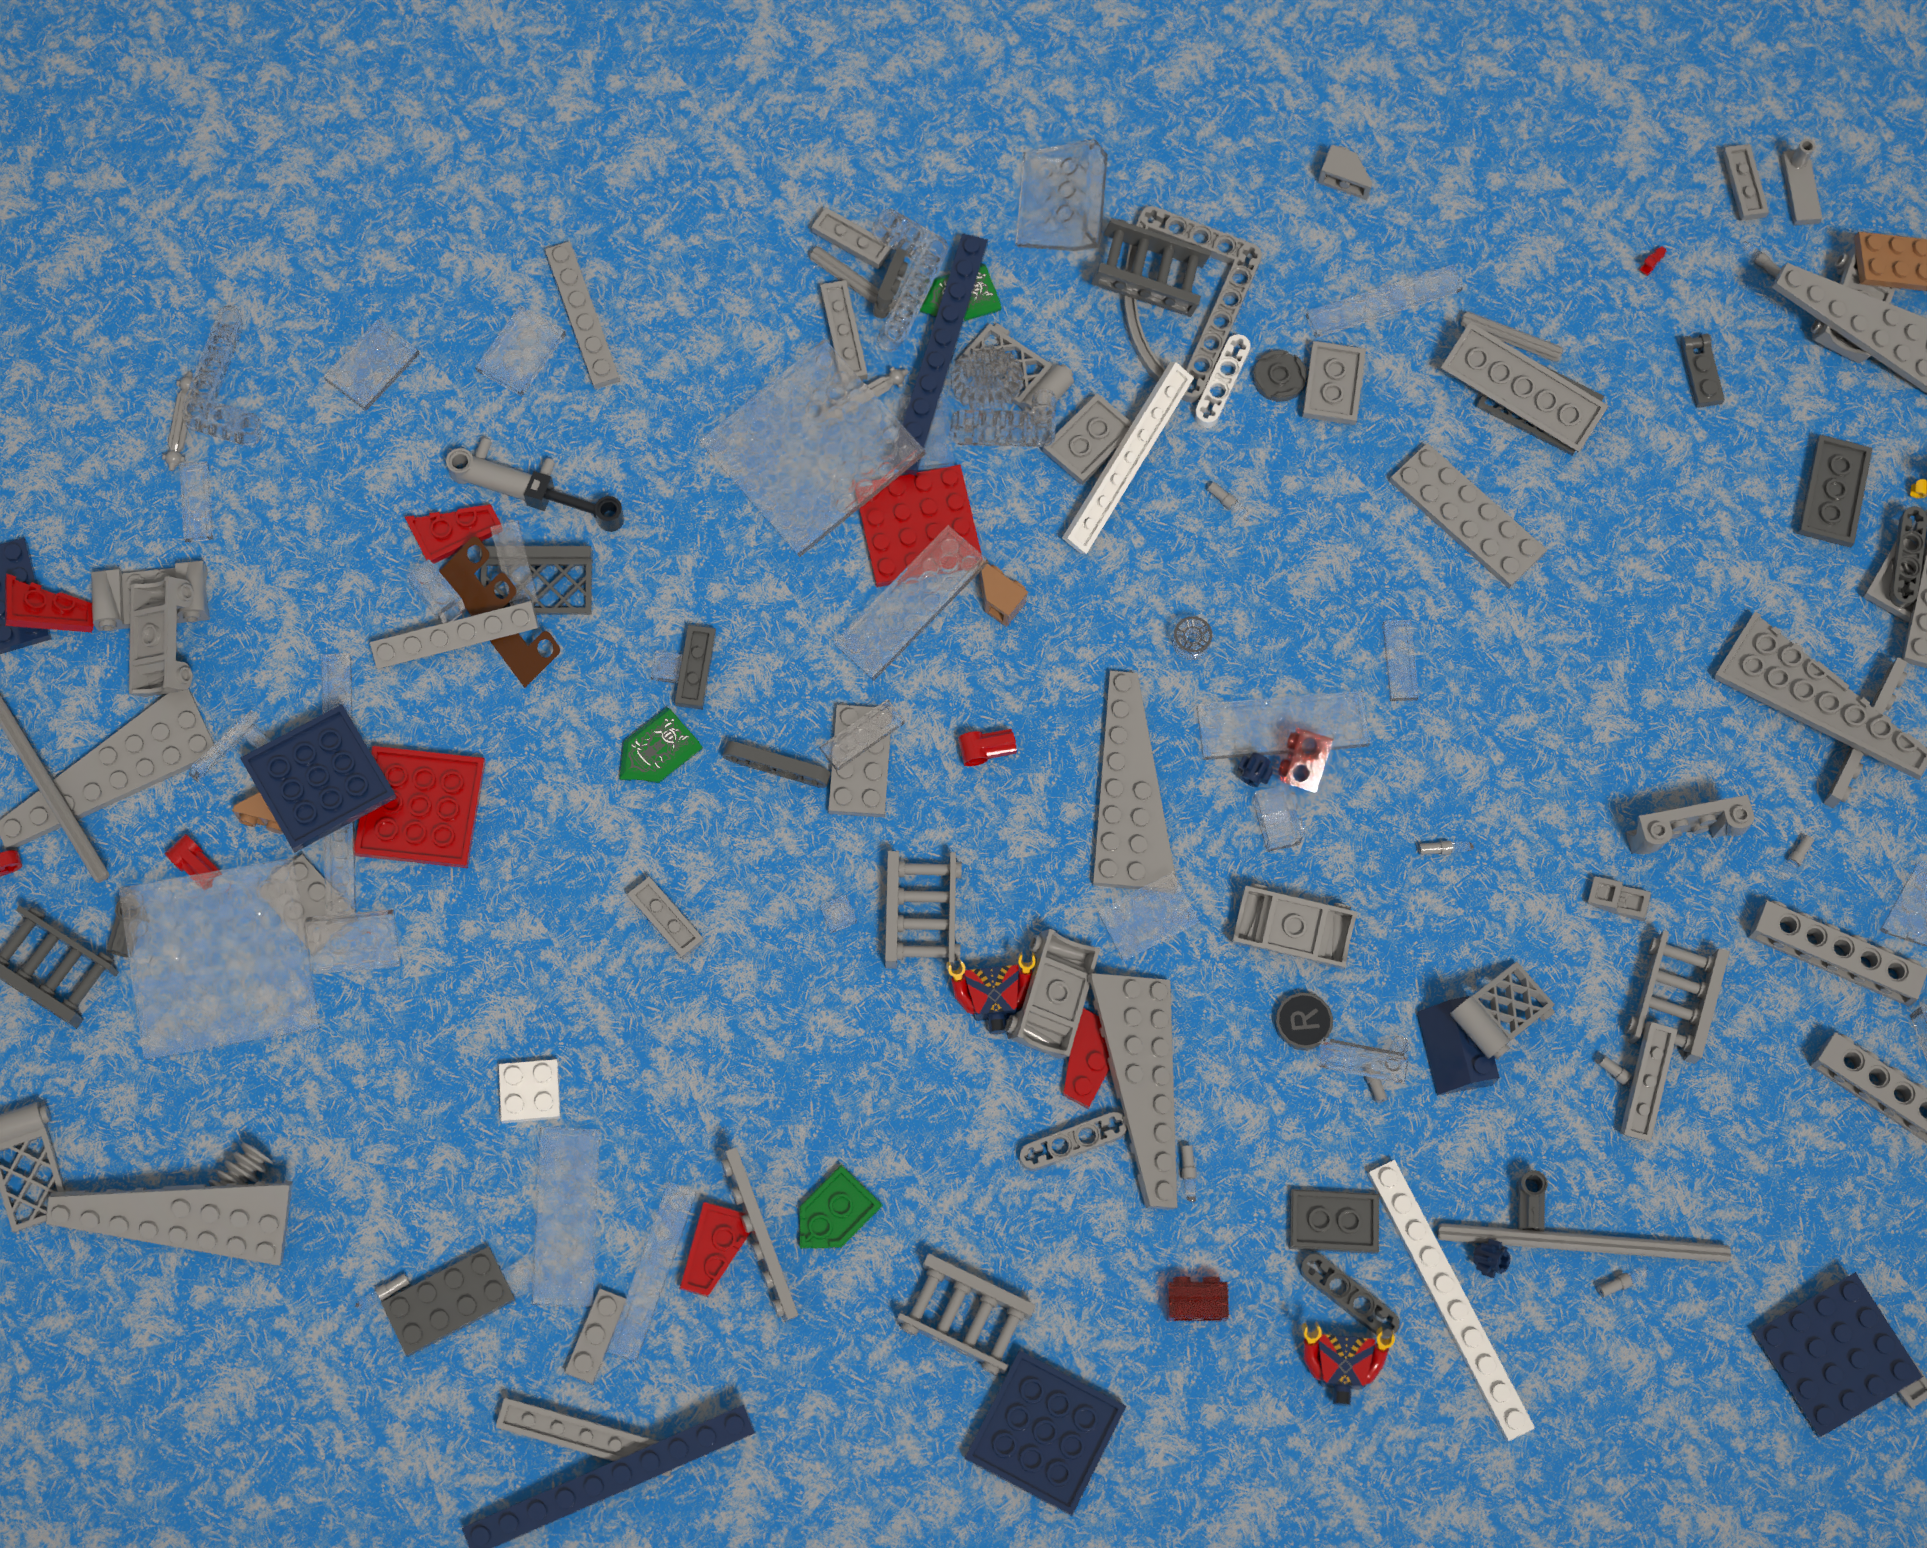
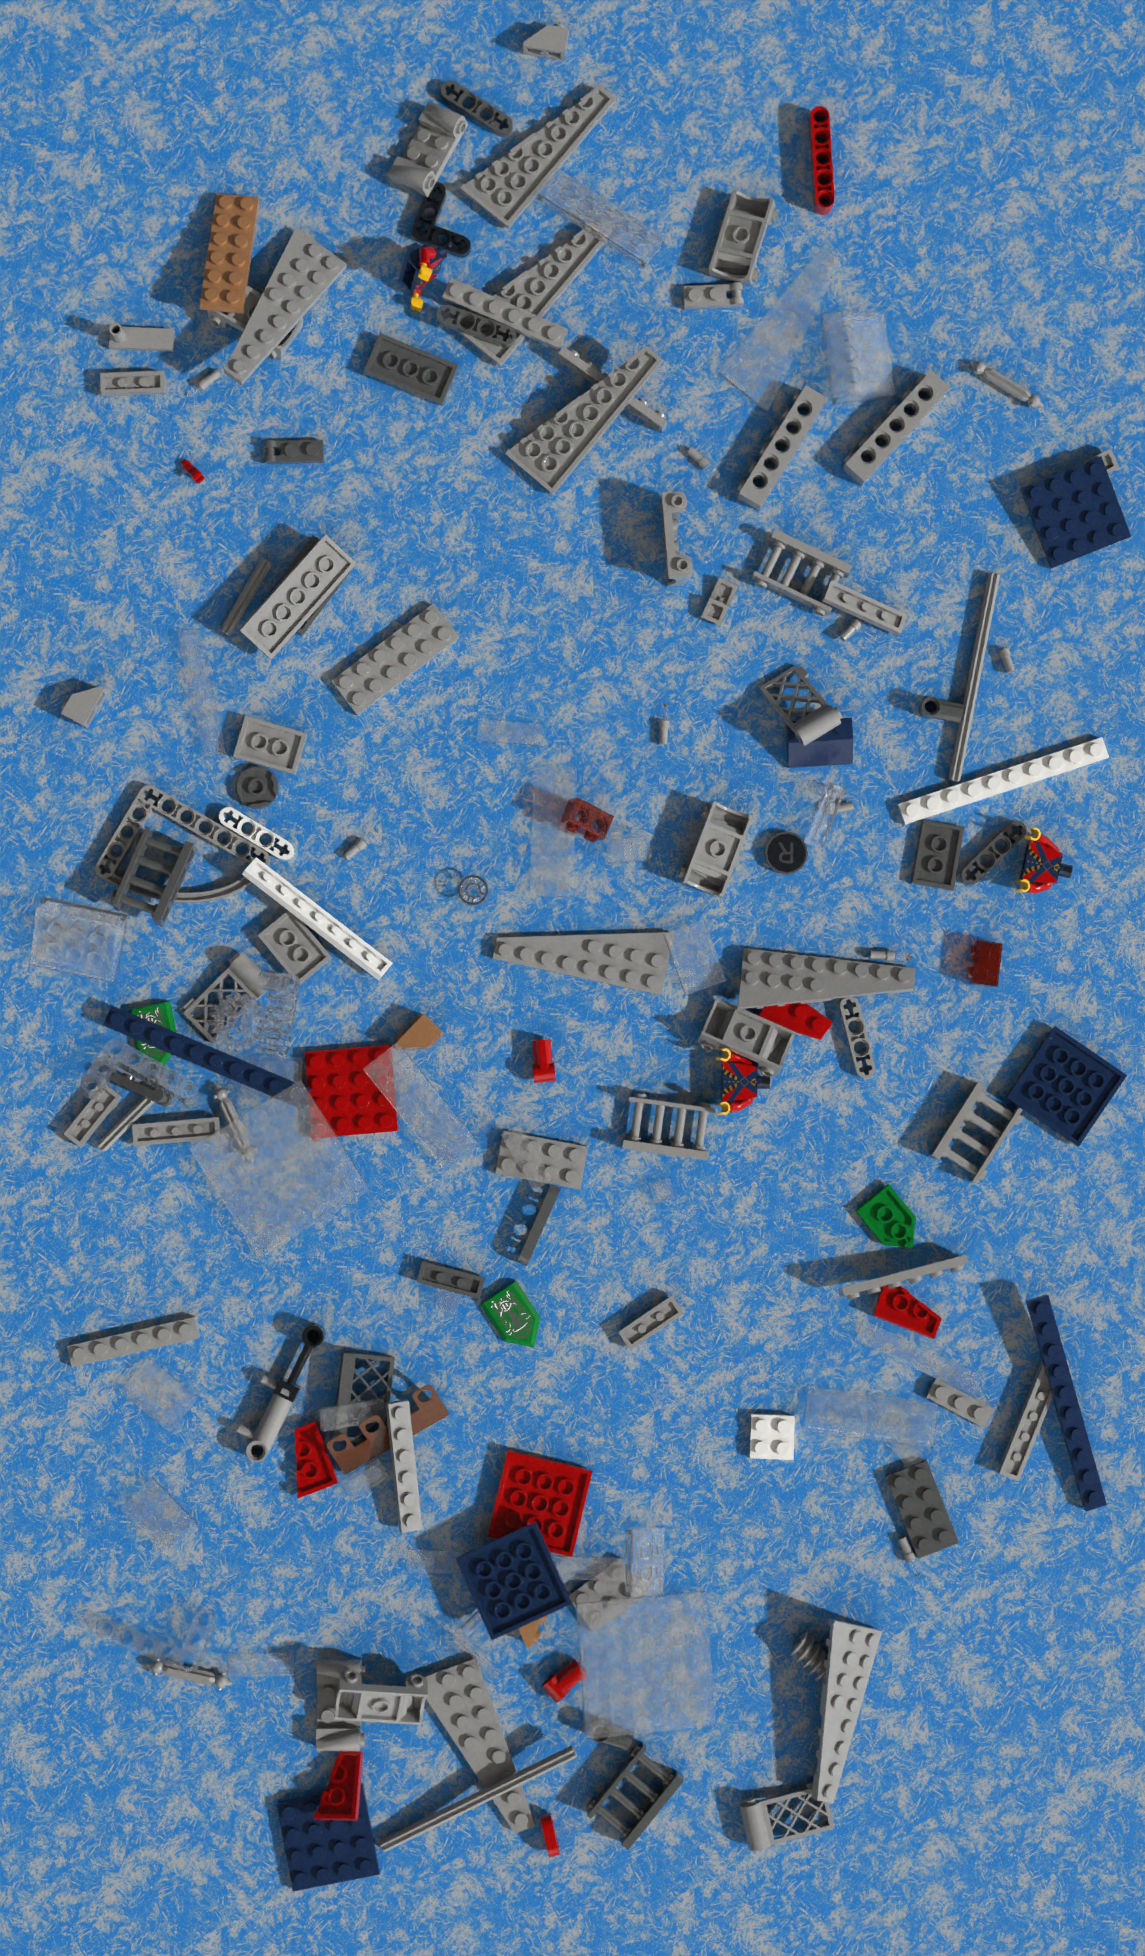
camera: 75 degrees left, 15 degrees up
(1255, 769) = (587, 859): dark blue gear -> none
(1491, 1258) = (979, 746): dark blue gear -> none

